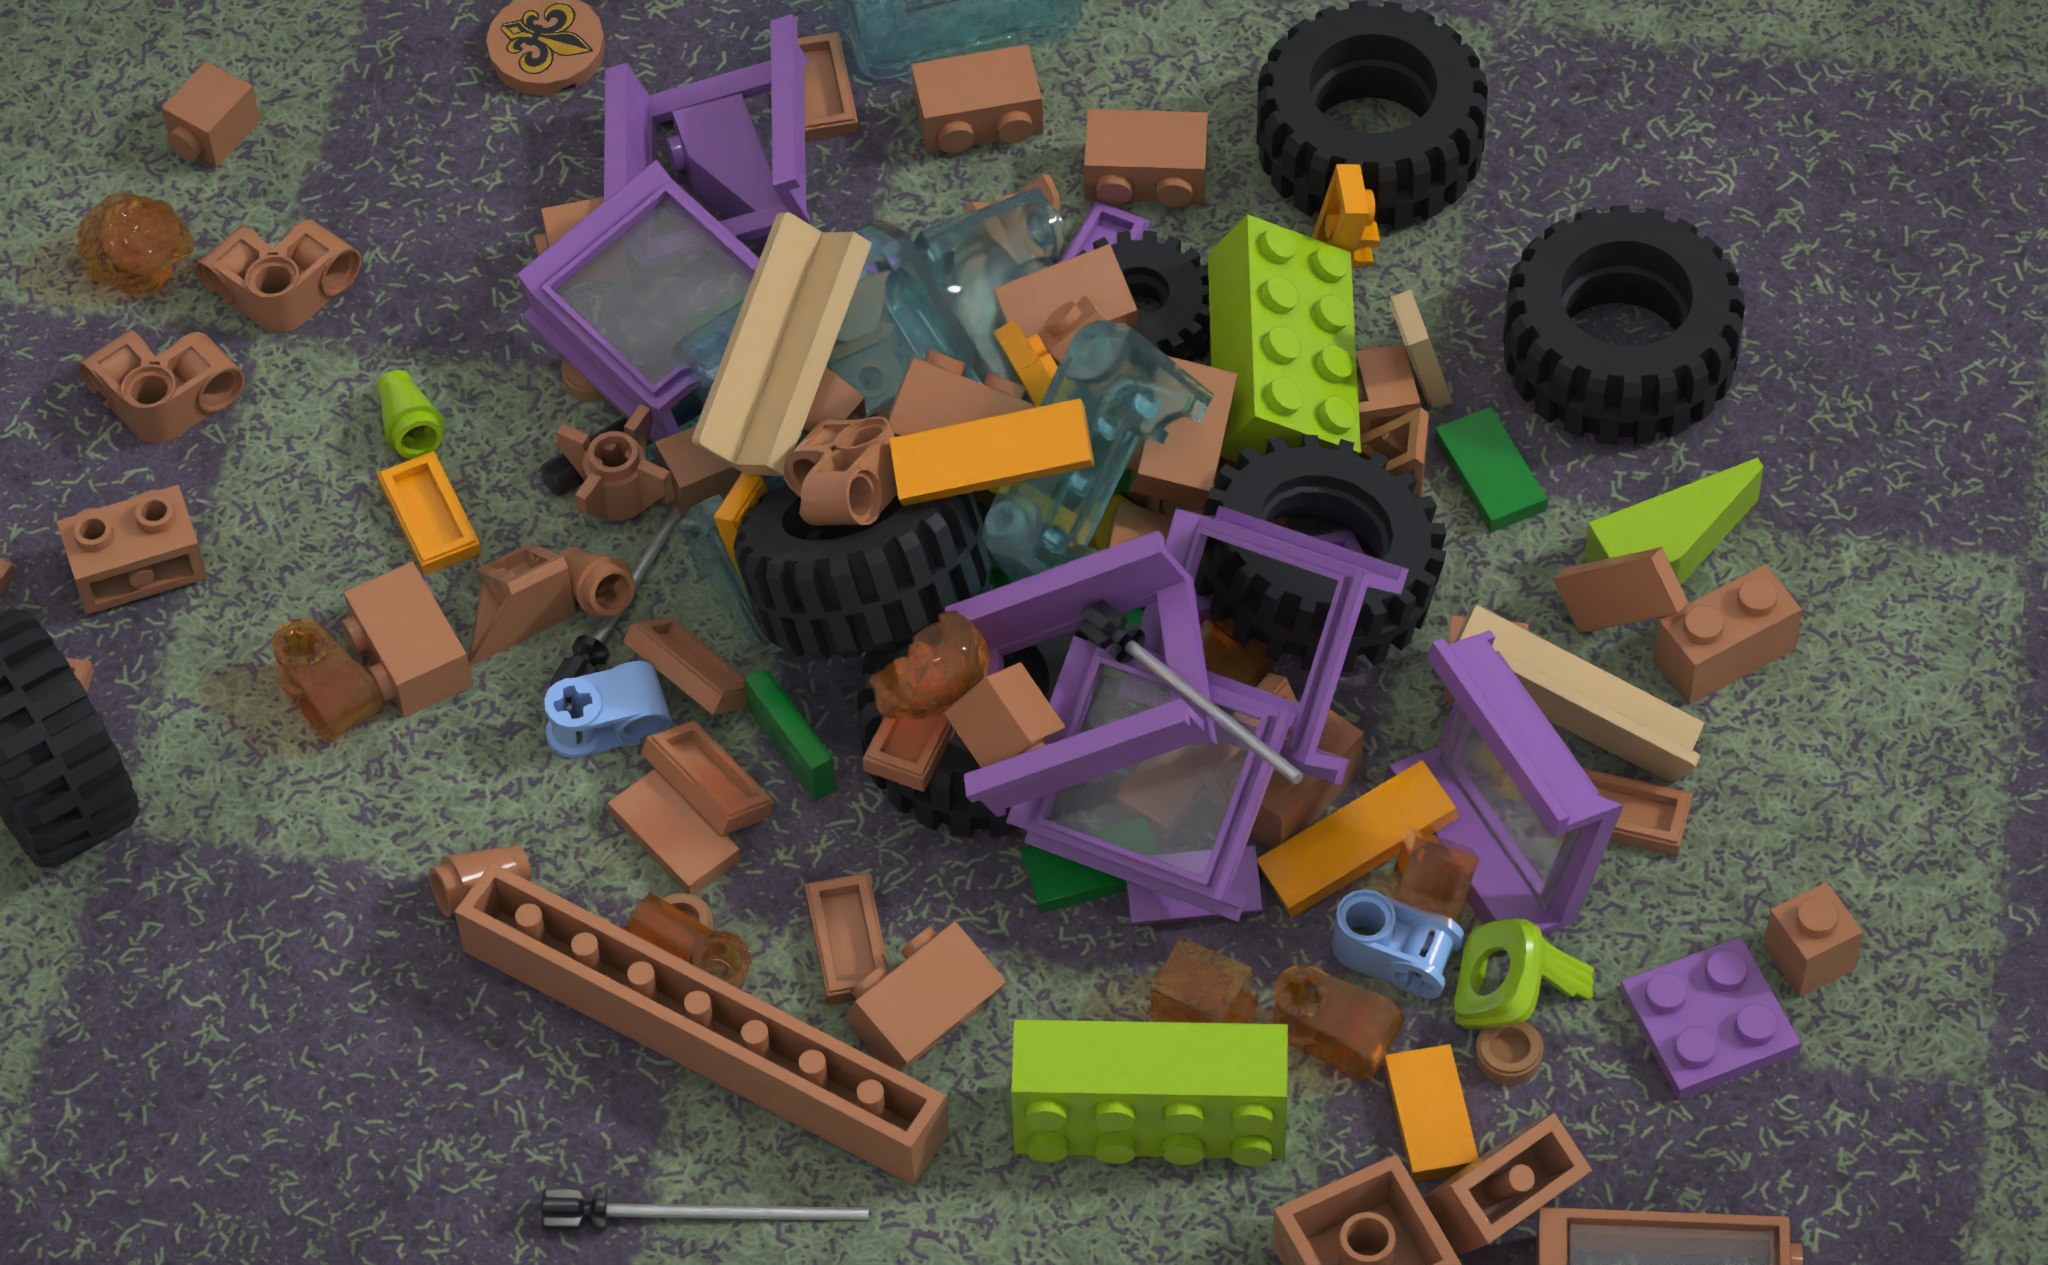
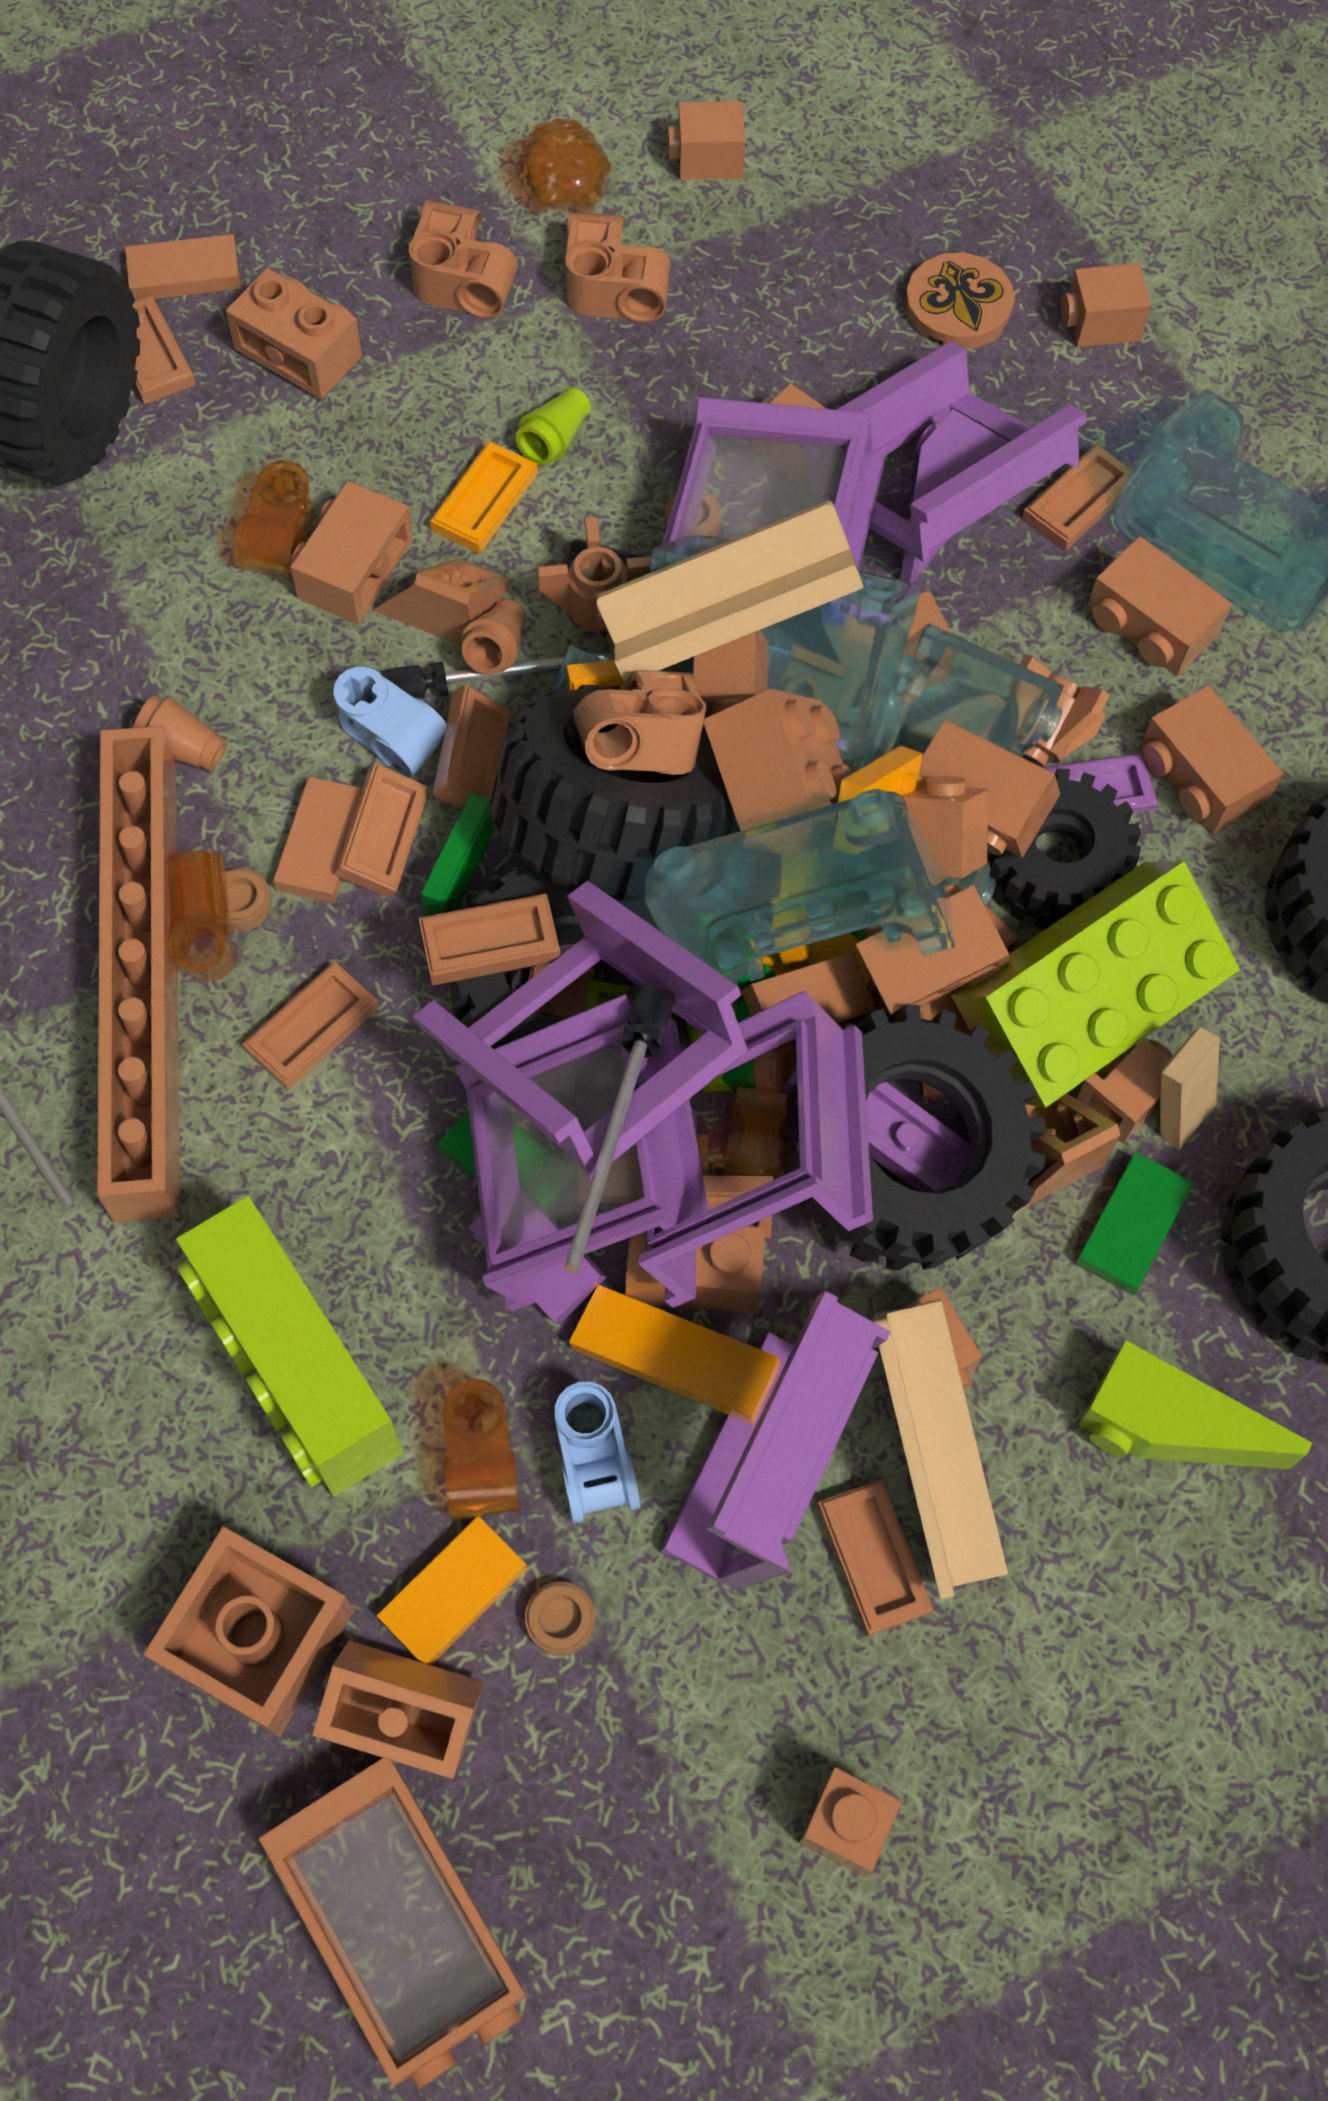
camera: 50 degrees right, 10 degrees up
(923, 997) = (275, 1115): nougat brick -> none
(938, 670) = (513, 922): clear orange hair -> none
(991, 452) = (726, 809): light orange tile -> none
(1004, 716) = (507, 998): nougat brick -> none
(1202, 987) = (431, 1329): clear orange brick -> none
(1349, 216) = (1264, 951): light orange plate -> none
(1433, 873) = (667, 1441): clear orange brick -> none
(1529, 962) = (640, 1578): lime piece -> none
(1620, 590) = (1076, 1415): nougat tile -> none
(1710, 1018) = (714, 1776): medium lavender plate -> none
(1727, 634) = (1115, 1535): nougat brick -> none

